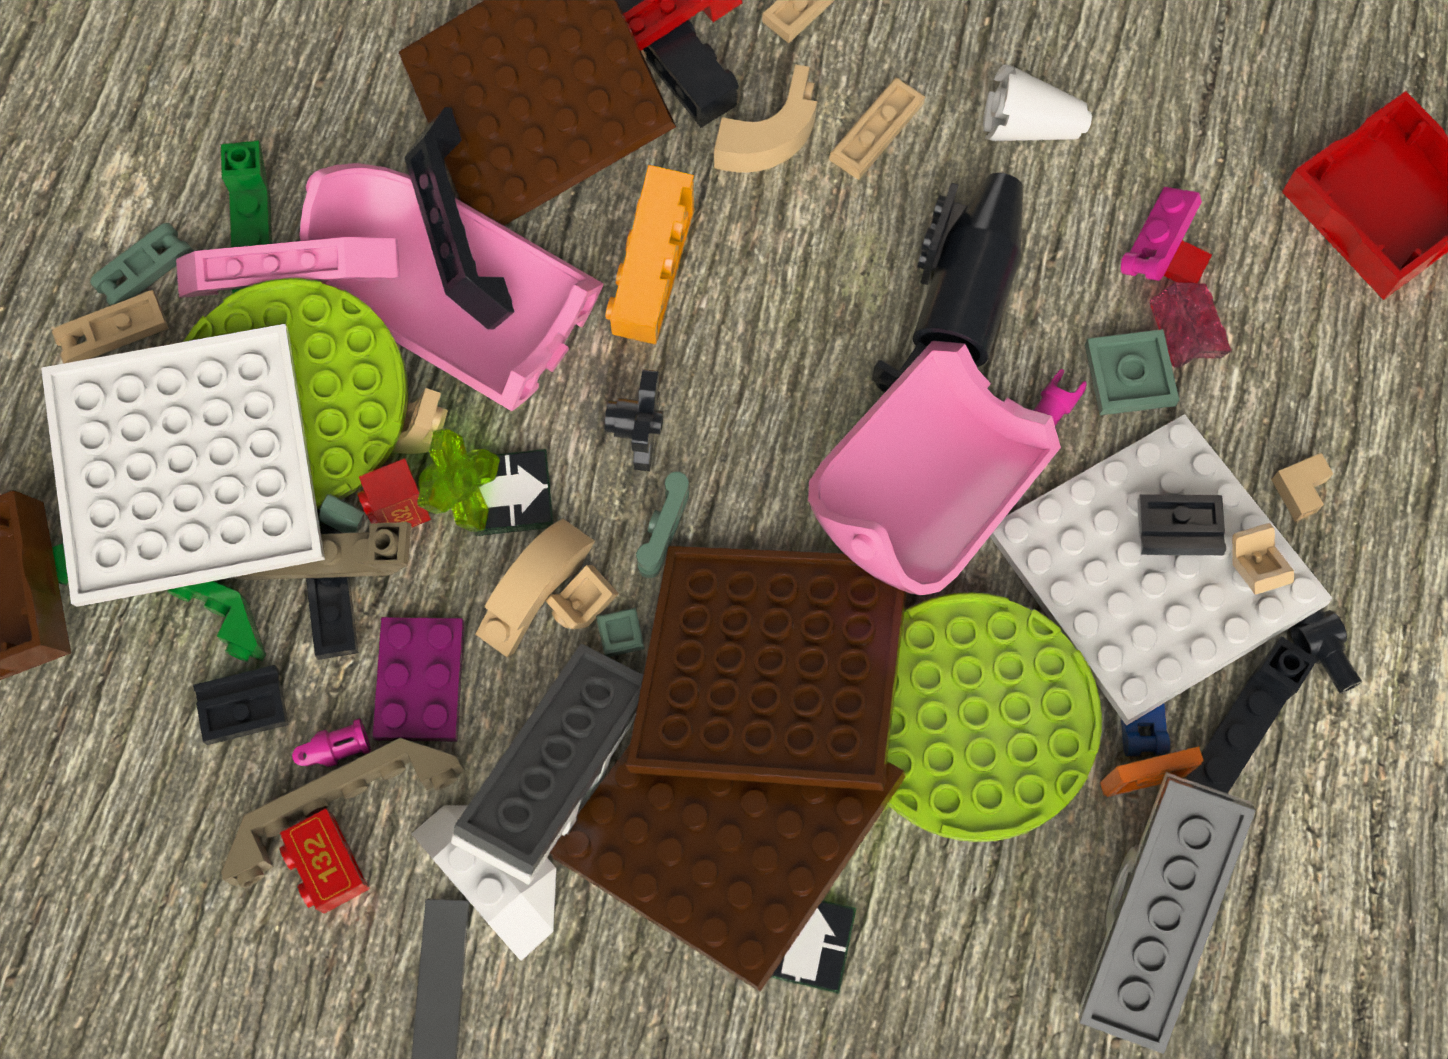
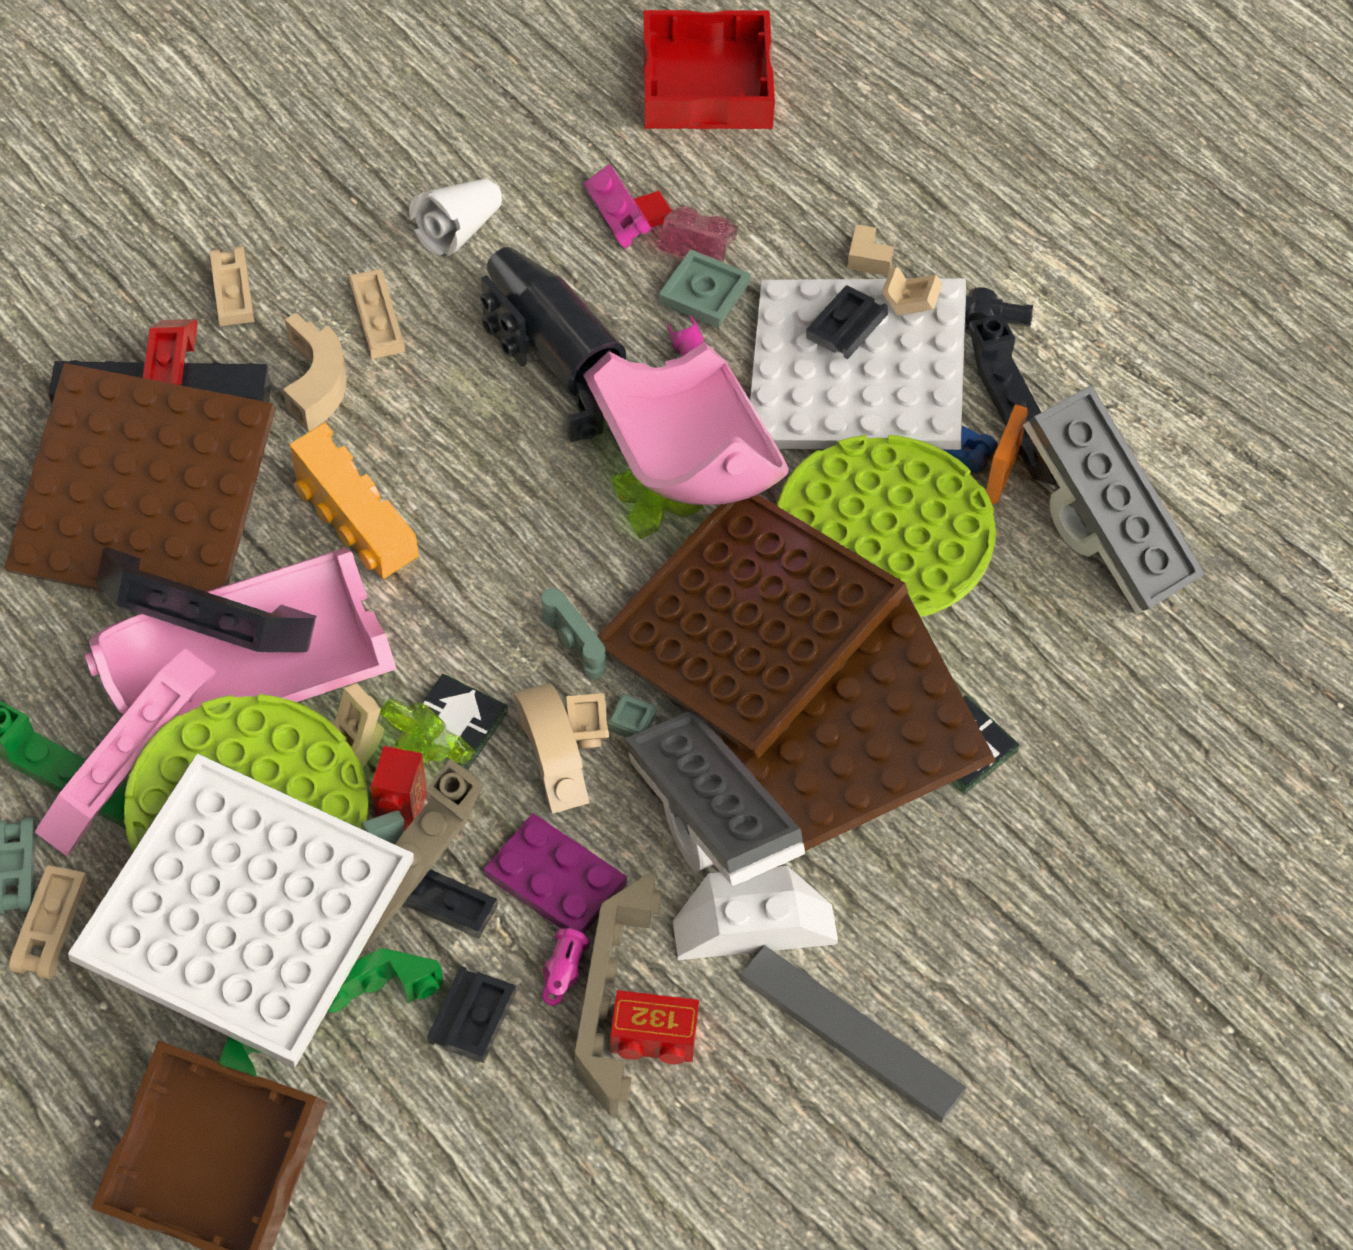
camera: 55 degrees left, 15 degrees down
(638, 419) = (481, 589): black plant -> none

